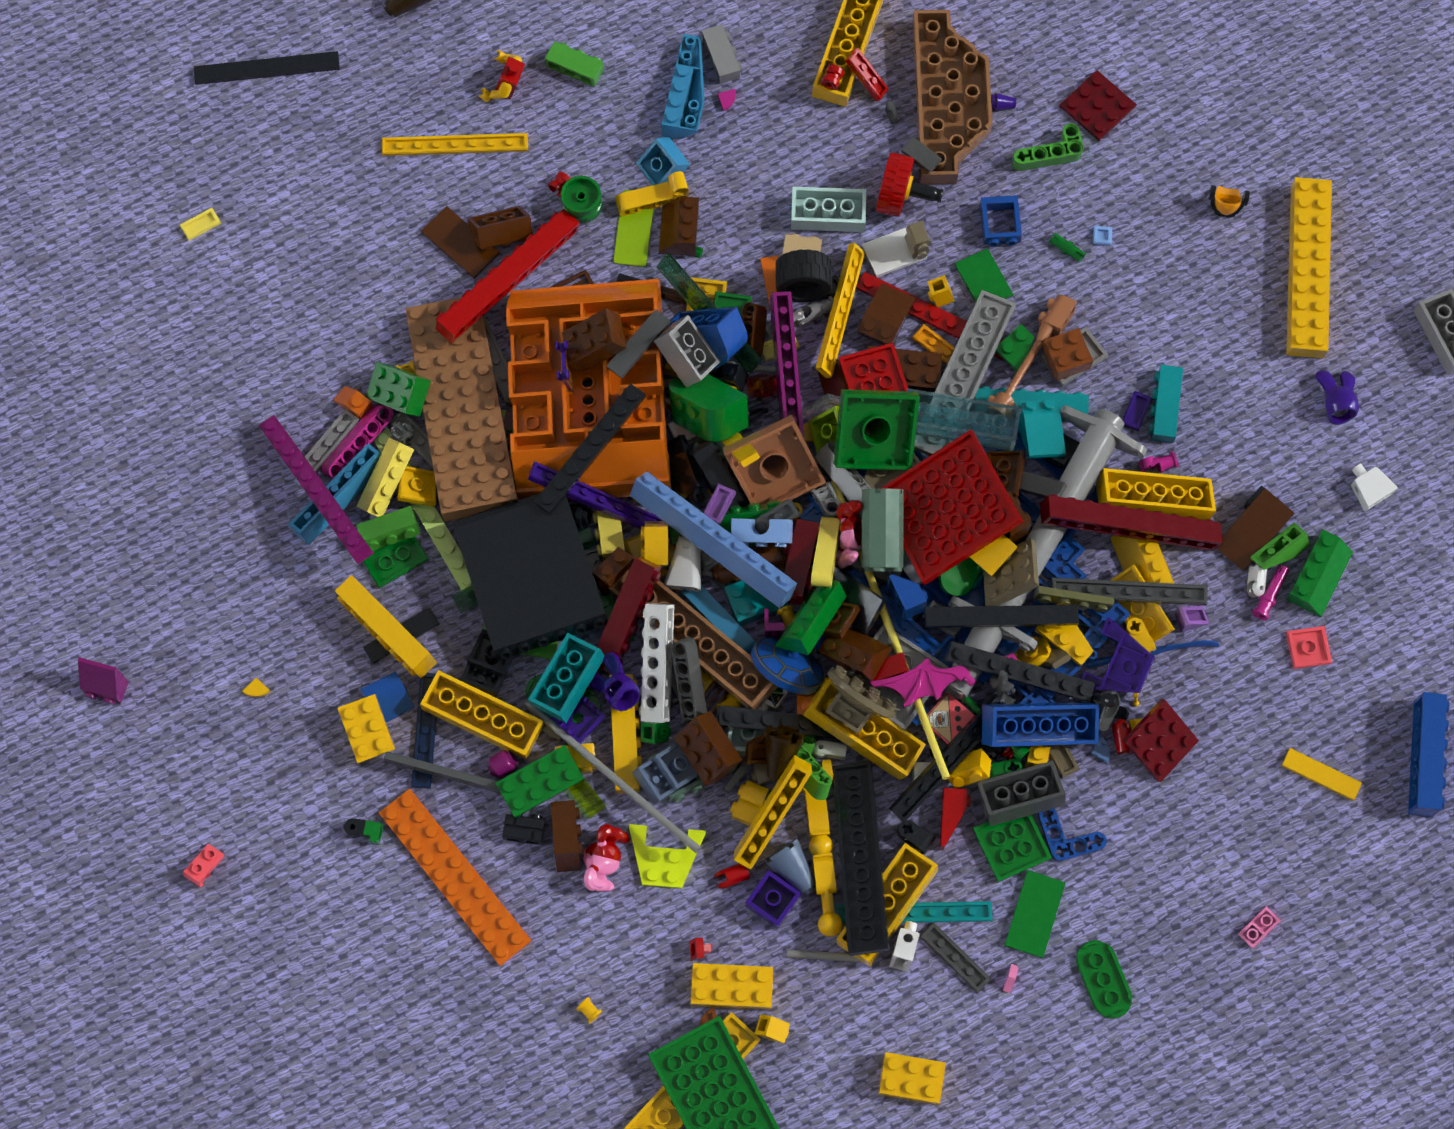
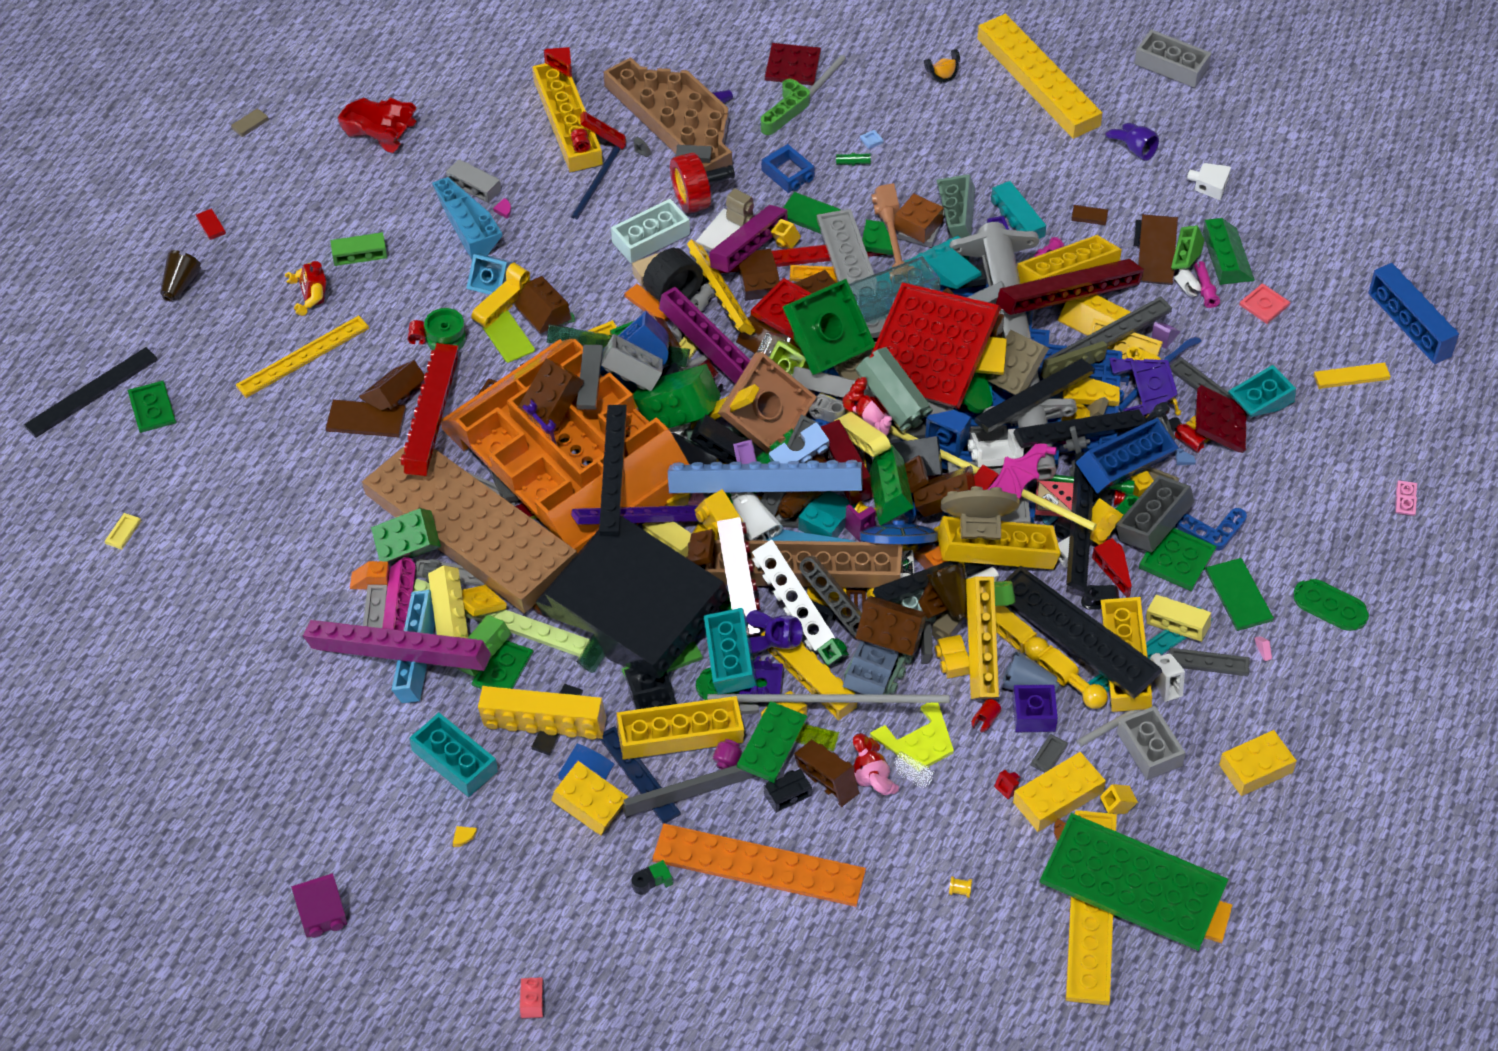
camera: 35 degrees left, 20 degrees down
(296, 614) = (453, 754): none -> teal brick
(303, 114) = (151, 406): none -> green tile
(634, 882) = (912, 770): none -> clear tile
(755, 945) = (1049, 753): none -> dark grey tile
(821, 125) = (595, 183): none -> dark blue piece
(839, 998) = (1151, 742): none -> light grey brick
(901, 275) = (746, 239): none -> magenta brick
(929, 642) = (993, 452): none -> white panel
(961, 902) = (1178, 618): none -> light yellow brick
(1116, 362) = (958, 203): none -> sand green wedge
(1117, 138) = (826, 75): none -> light grey bar
(1181, 687) = (1195, 378): none -> dark grey tile
(1219, 740) = (1264, 392): none -> teal slope
(1230, 448) = (1089, 215): none -> reddish brown tile

